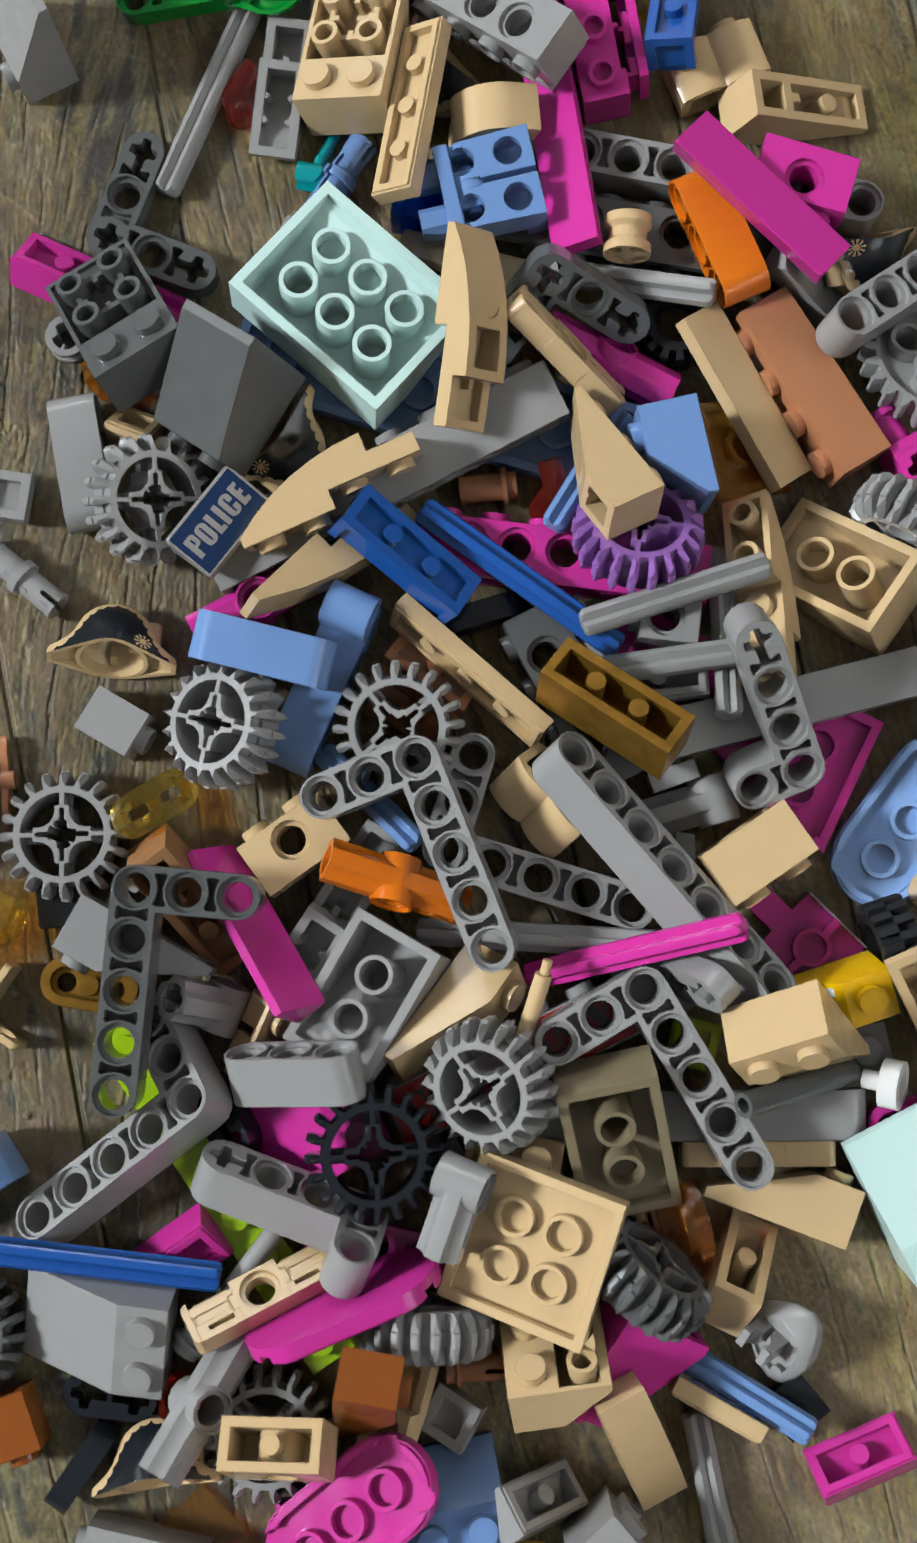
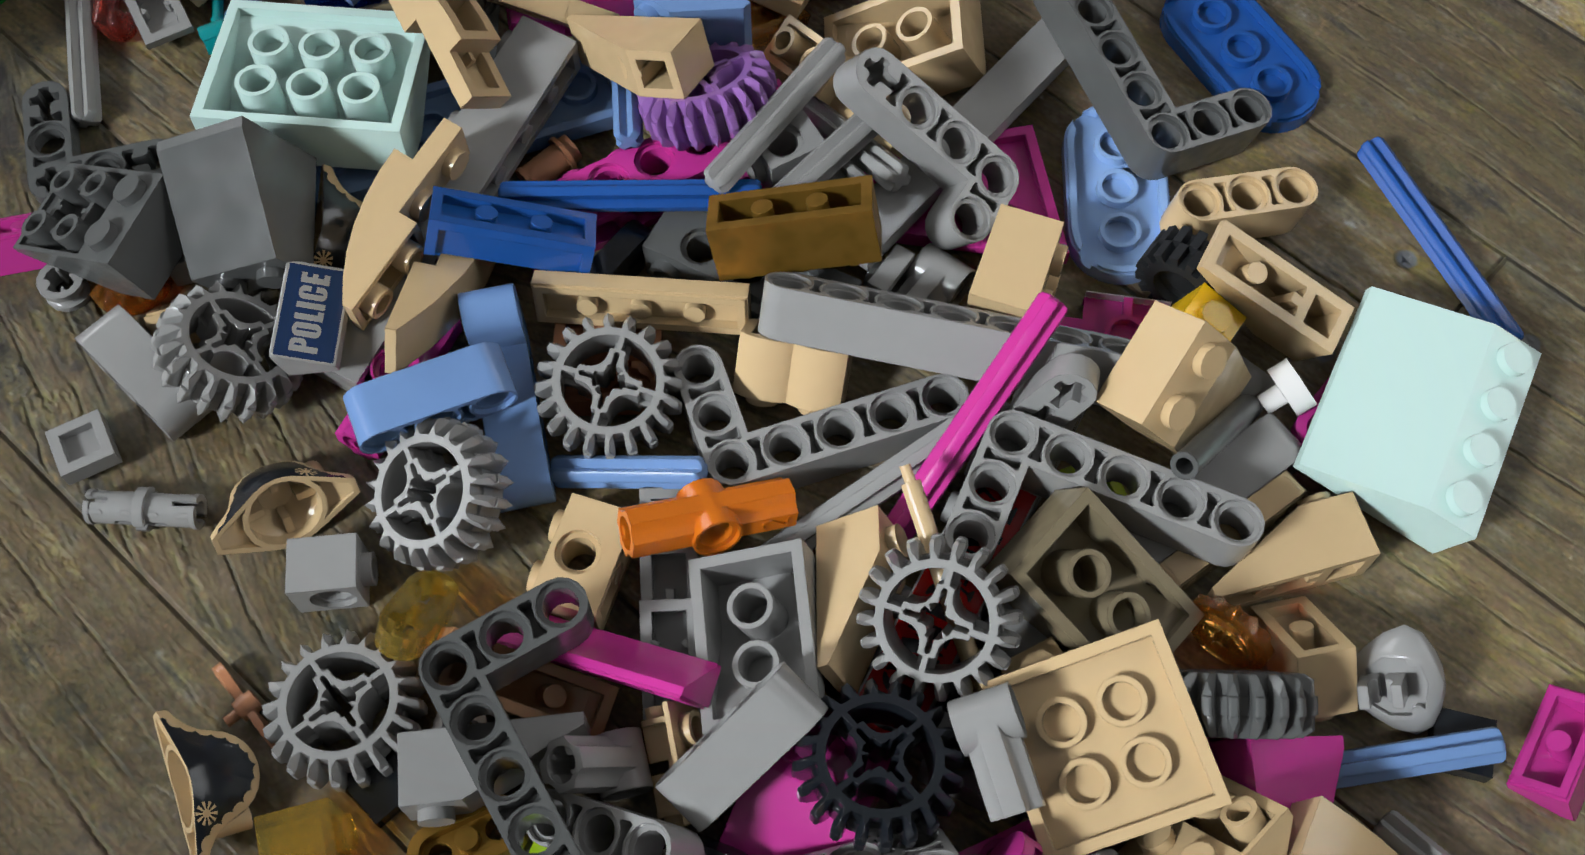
camera: 35 degrees left, 20 degrees down
(435, 833) = (710, 433): light grey beam -> none
(552, 479) = (601, 117): clear red arm -> none
(717, 1407) = (1400, 791): tan tile -> none

